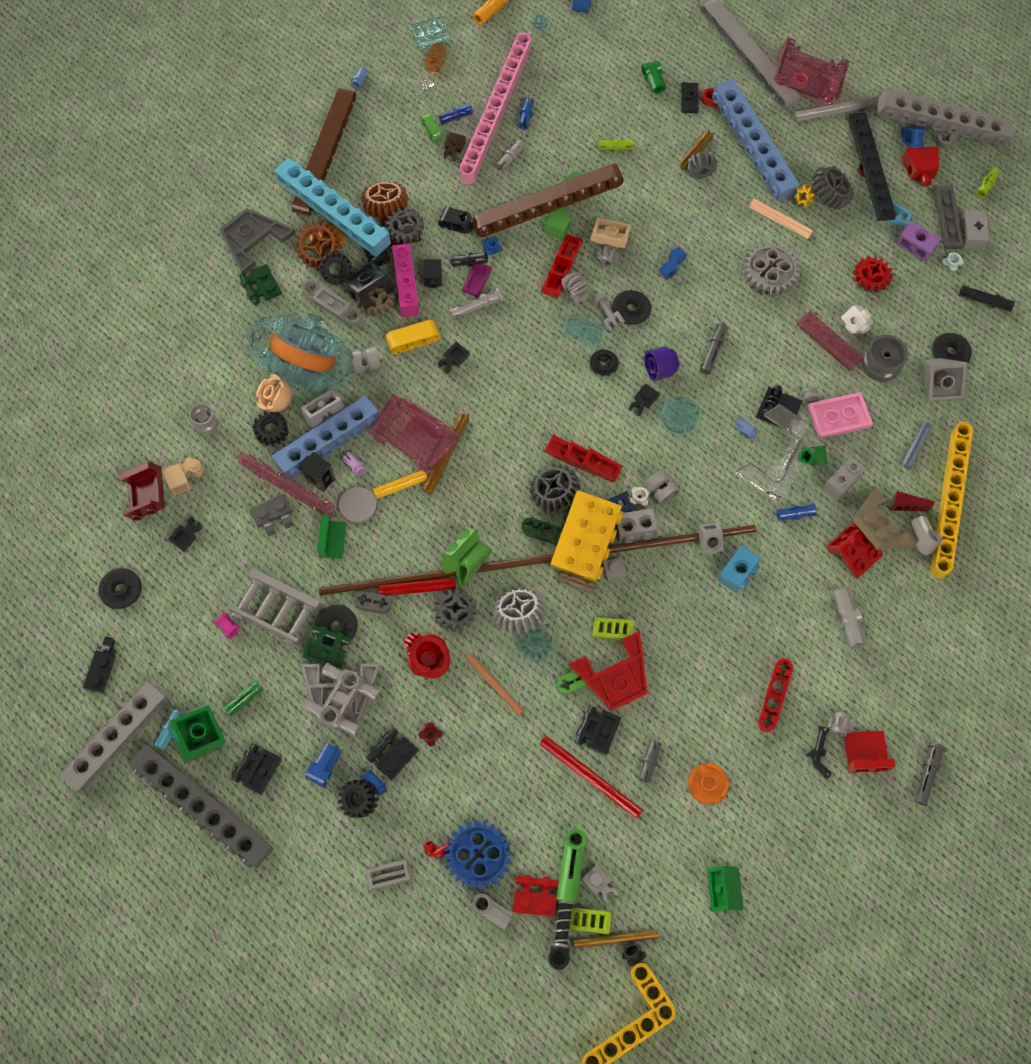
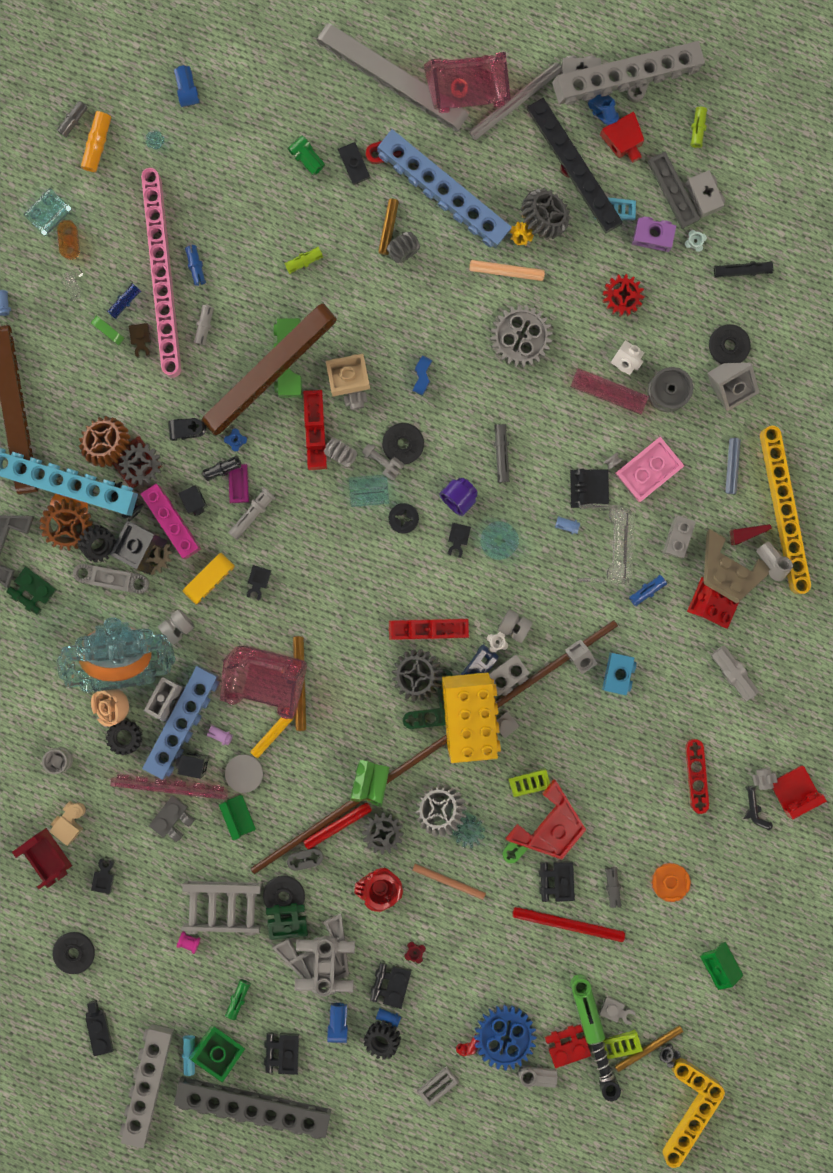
camera: 25 degrees left, 20 degrees up
(814, 456) = (644, 528): green piece -> none

